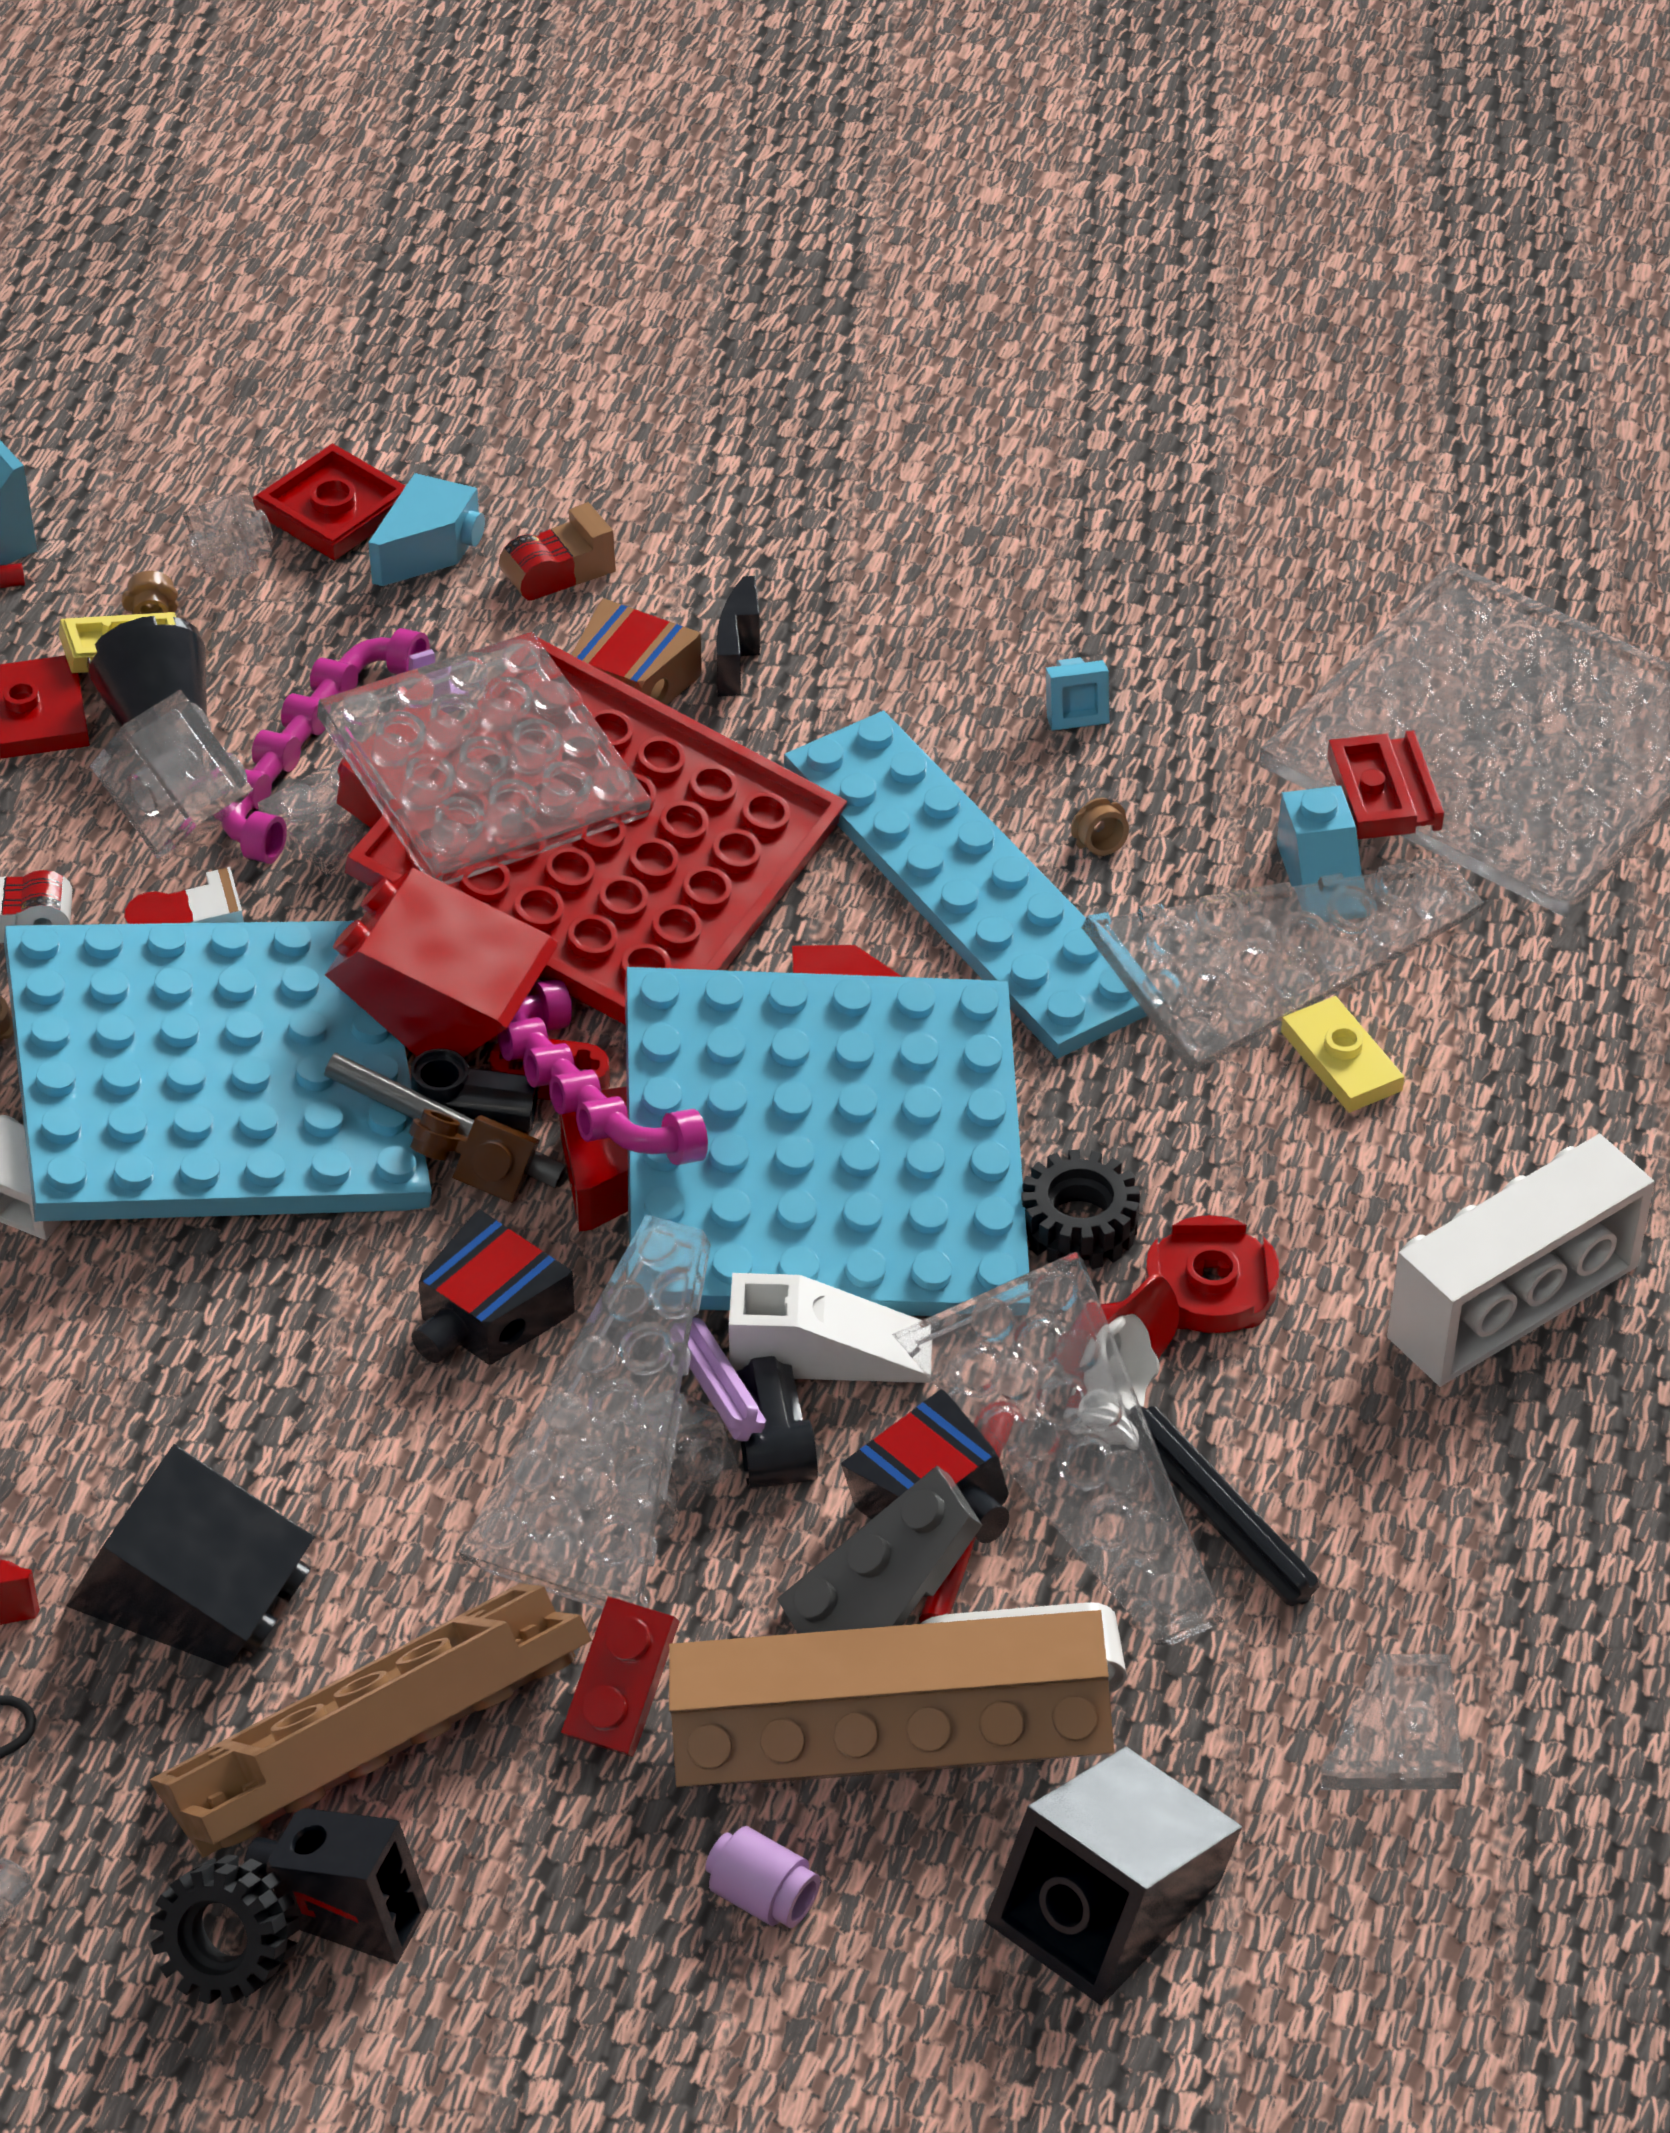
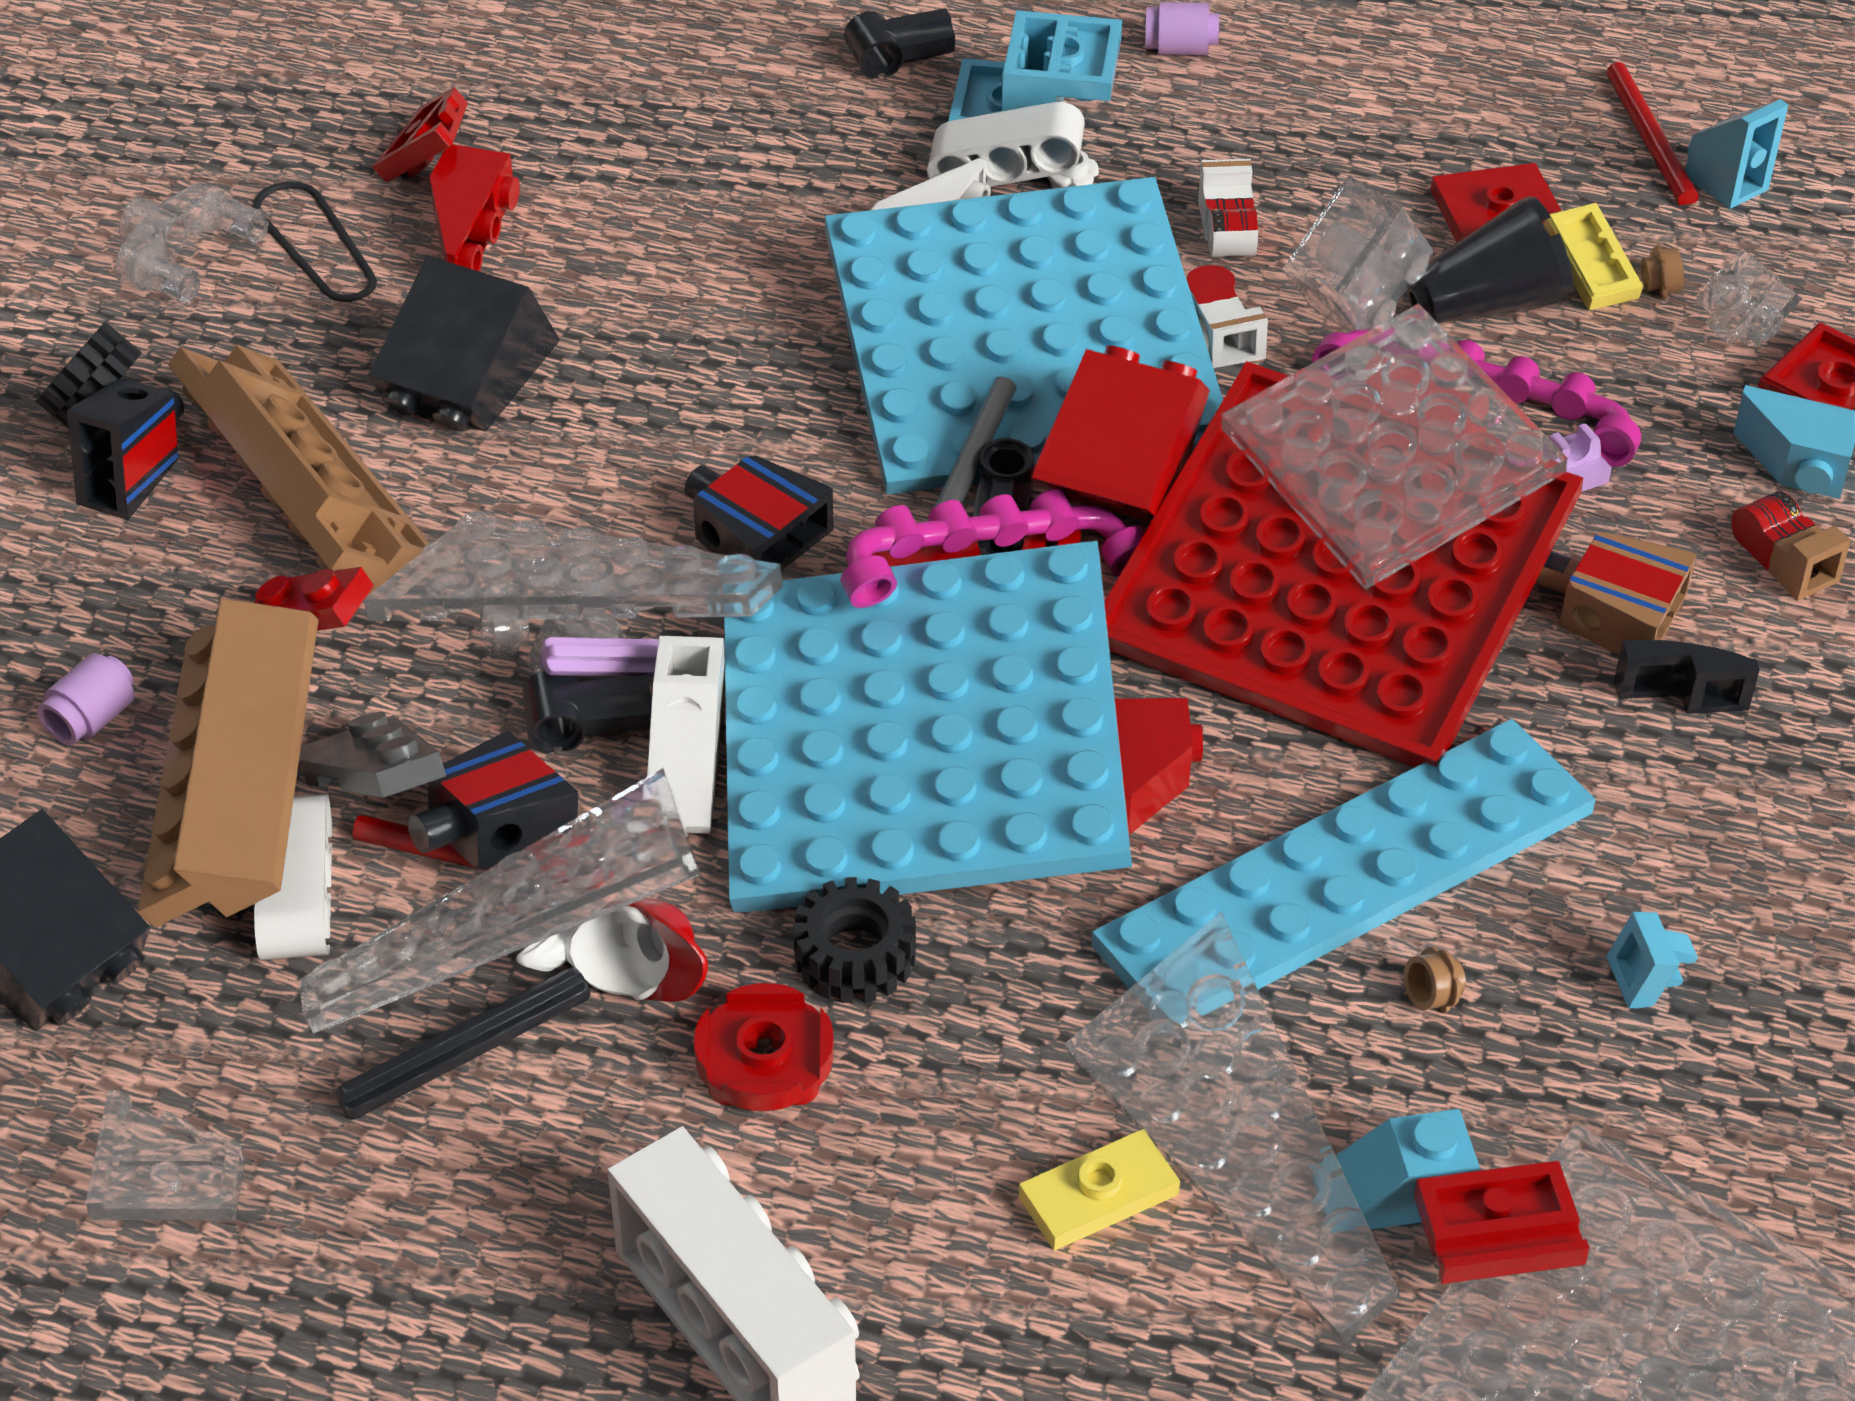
camera: 90 degrees right, 0 degrees up
(491, 1156) = (929, 467): reddish brown plate -> none

